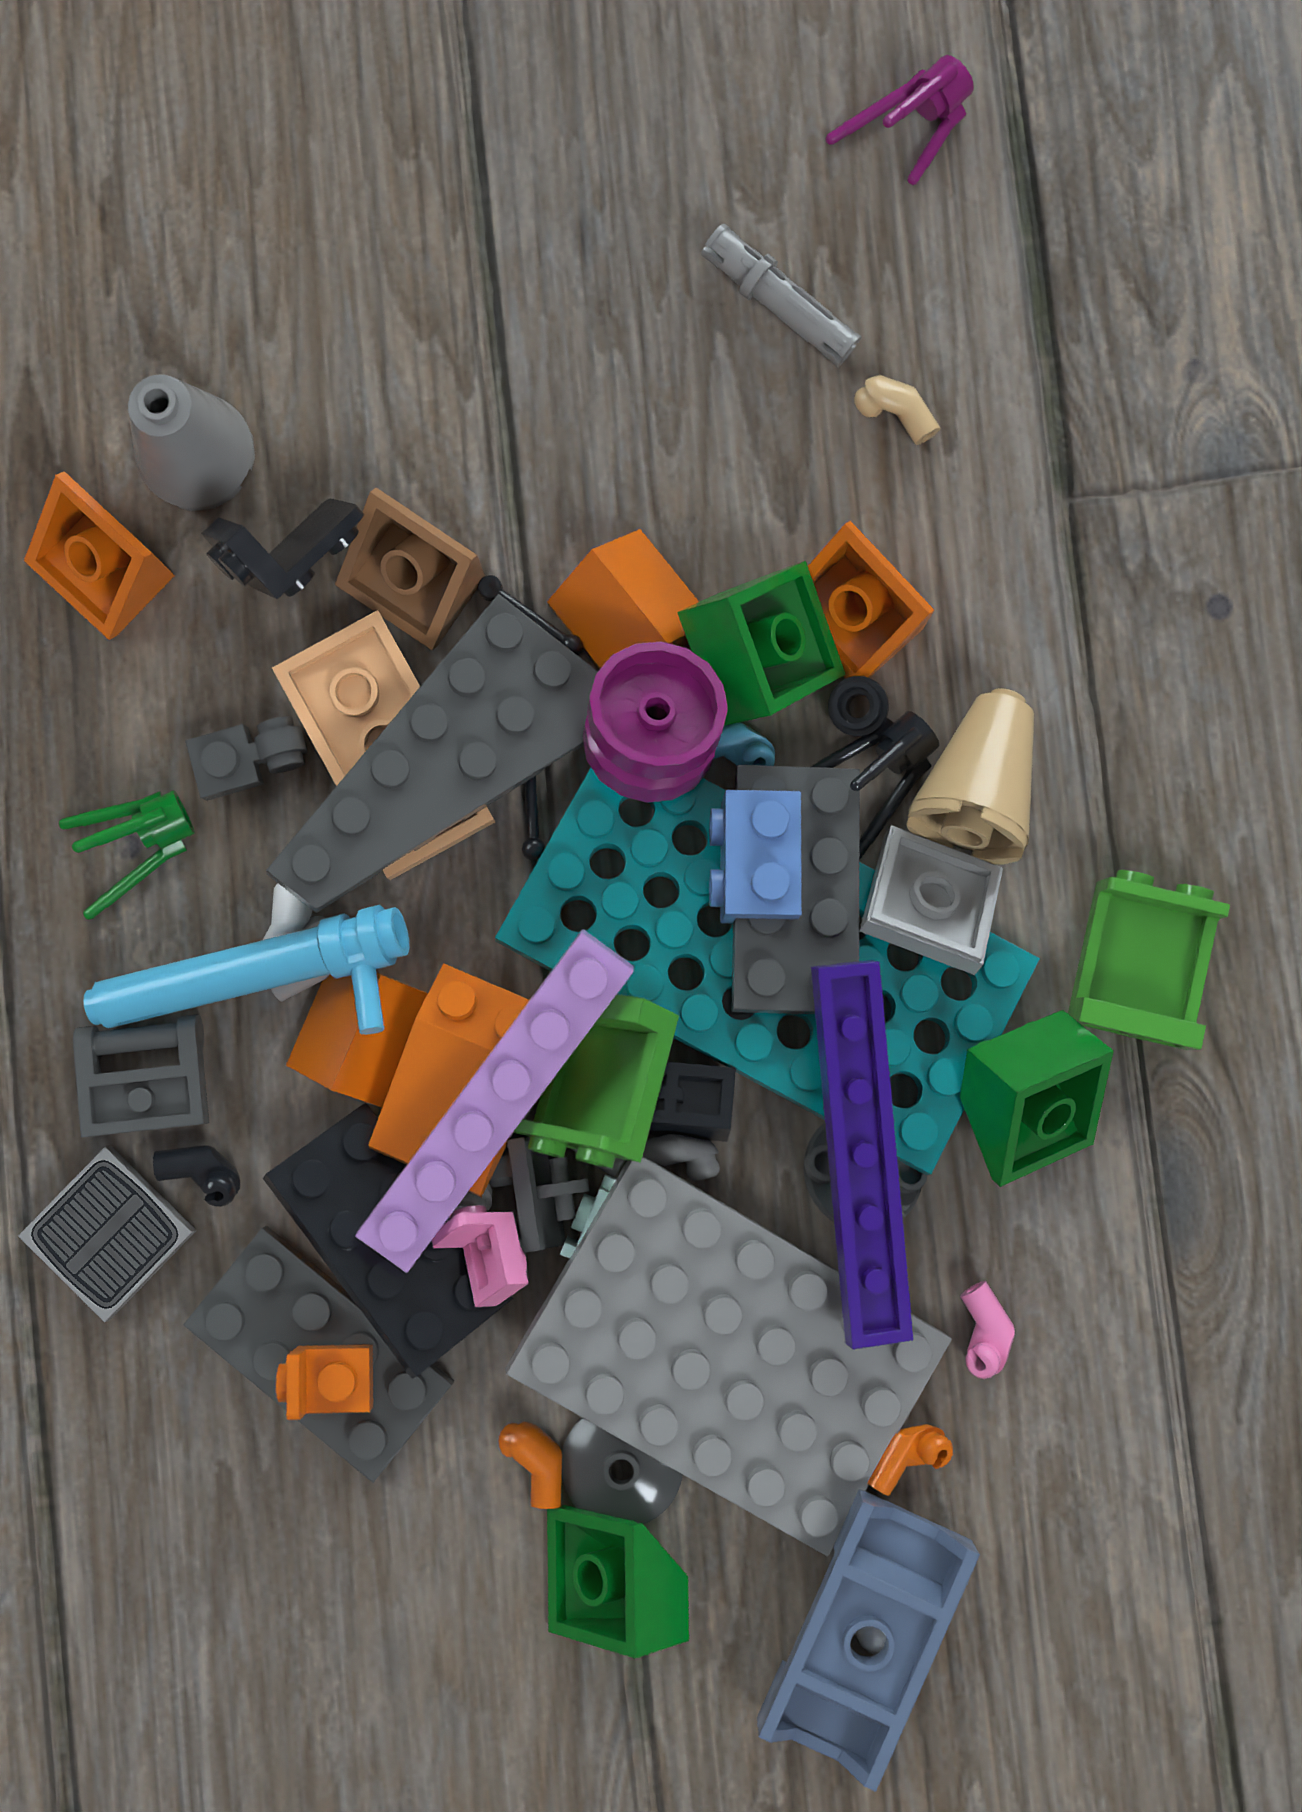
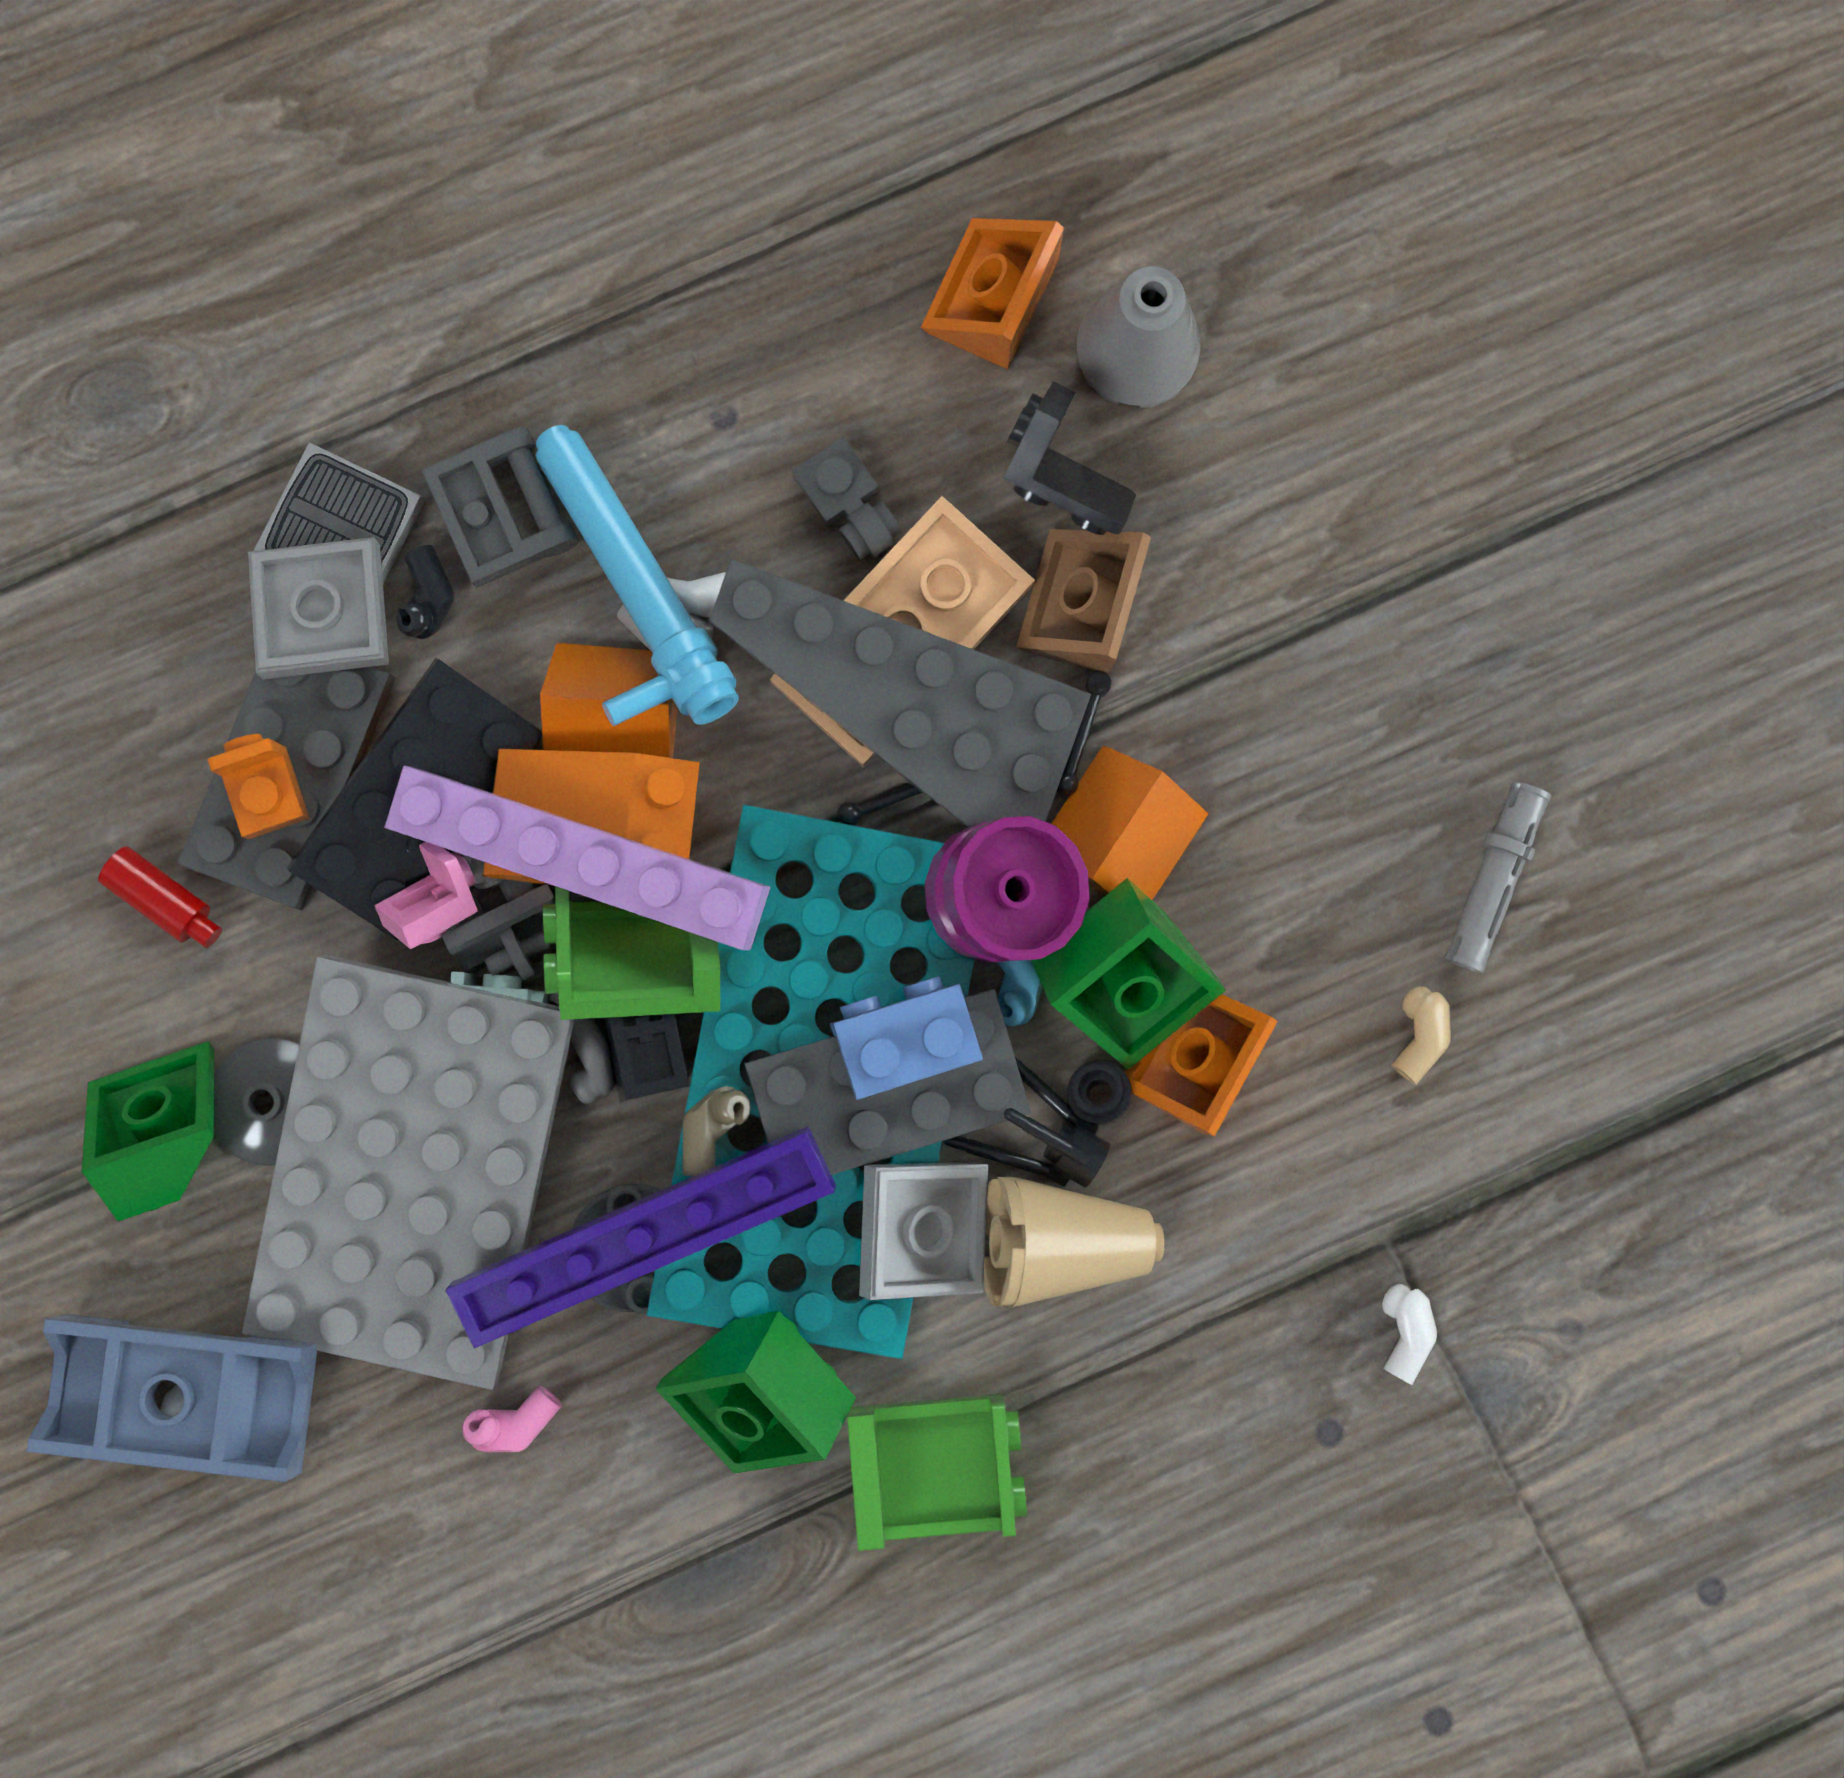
camera: 70 degrees right, 0 degrees up
(157, 821) = (754, 439): green plant -> none
(178, 1274) = (318, 608): none -> light grey tile
(398, 1510) = (158, 897): none -> red cylinder
(539, 1456) = (252, 1018): orange arm -> none
(775, 1059) = (709, 1121): none -> dark tan arm
(909, 1448) = (373, 1381): orange arm -> none
(933, 94) = (1766, 965): magenta plant -> none
(1157, 500) = (1416, 1331): none -> white arm

